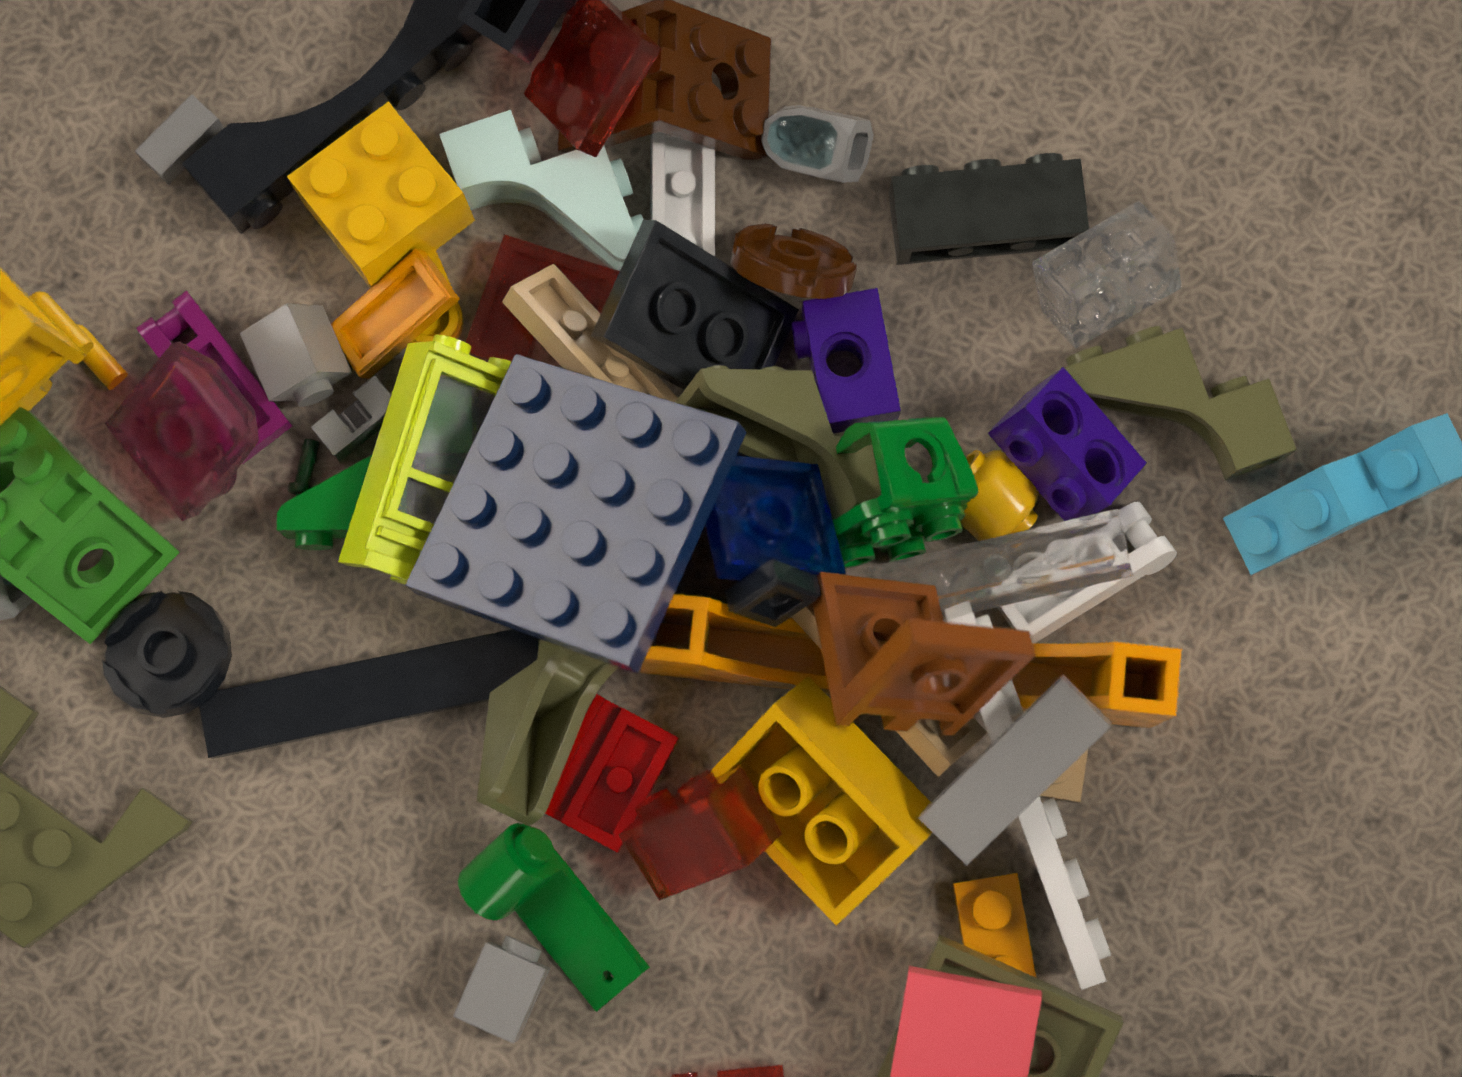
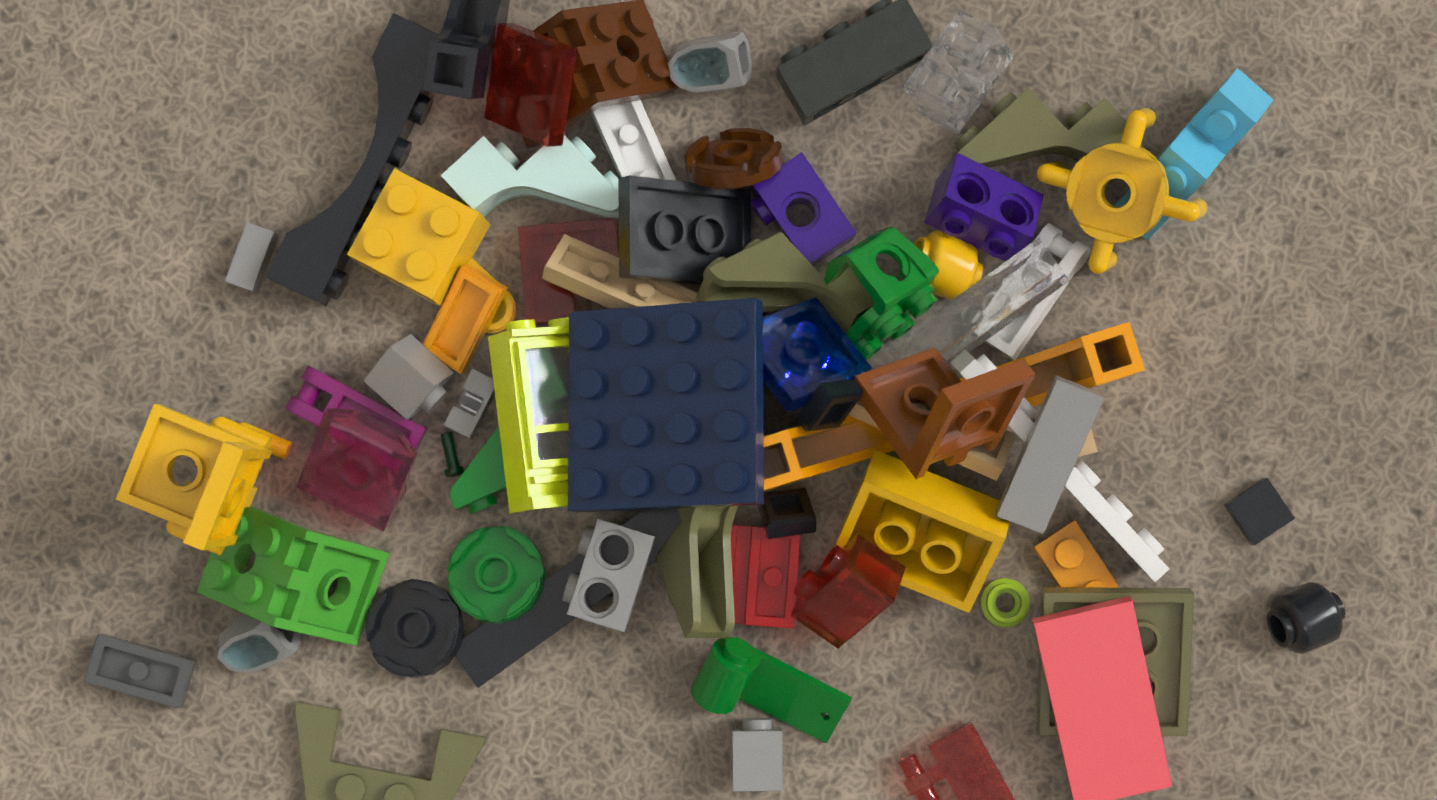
camera: 25 degrees left, 5 degrees up
(292, 631) = (496, 574): none -> green tile
(438, 700) = (623, 578): none -> light grey brick
(671, 710) = (787, 513): none -> black tile
(908, 928) = (1018, 611): none -> lime plate
(1249, 963) = (1259, 511): none -> black tile
(1275, 502) = (1147, 185): none -> yellow plate

